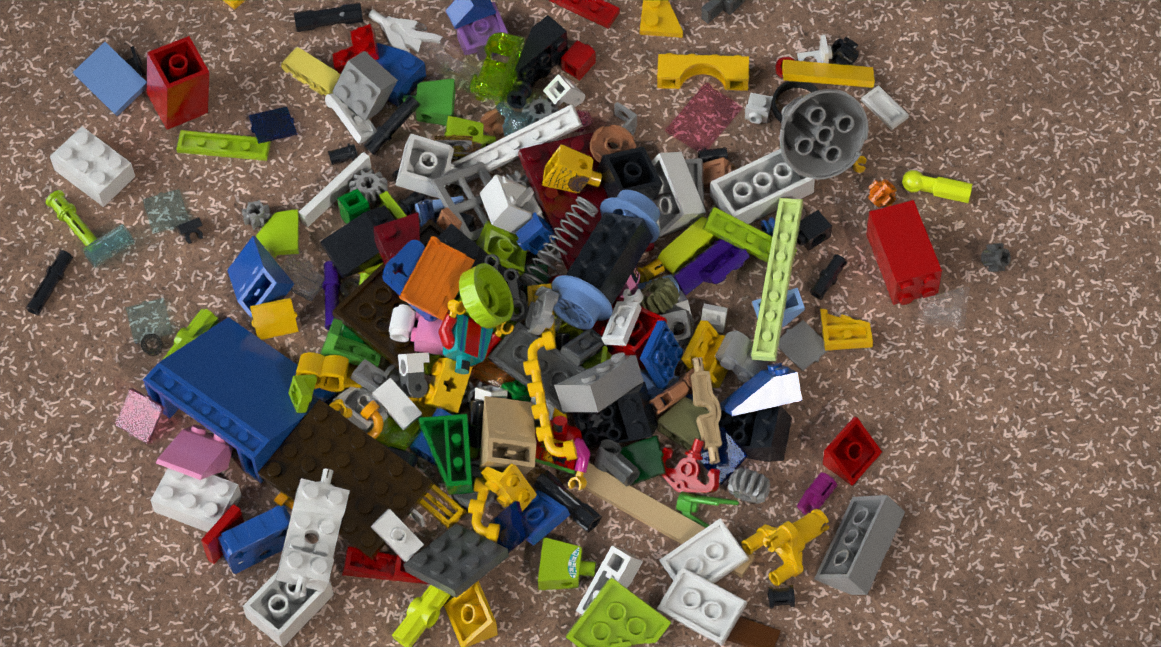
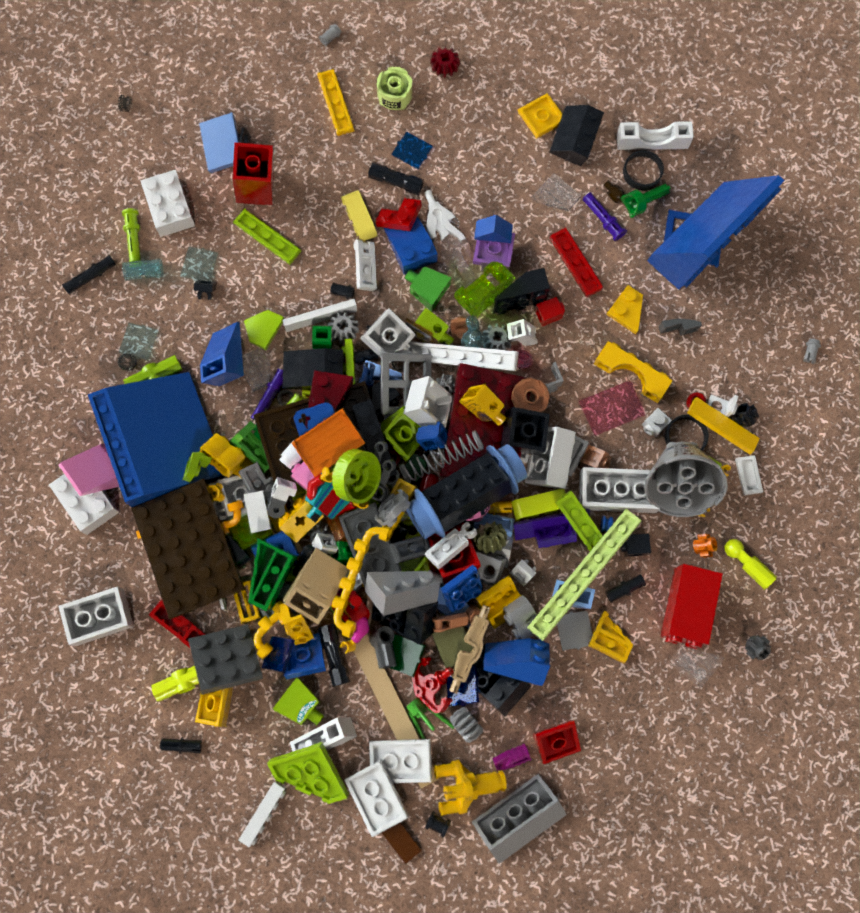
camera: 25 degrees right, 15 degrees up
(139, 415) = (82, 413): clear pink piece -> none
(231, 519) = (81, 539): red tile -> none
(250, 214) = (260, 303): light grey gear -> none
(255, 539) = (103, 557): blue axle -> none
(272, 125) = (308, 240): clear blue piece -> none
(274, 318) = (217, 392): yellow piece -> none
(318, 511) = (113, 601): white brick -> none
(364, 85) = (384, 248): light grey brick -> none
(395, 121) = (380, 291): black pin -> none
(397, 535) = (195, 615): white plate -> none
(446, 218) = (376, 392): nougat tile -> none
(520, 92) = (492, 315): black bush -> none
(712, 154) = (600, 442): black pin -> none

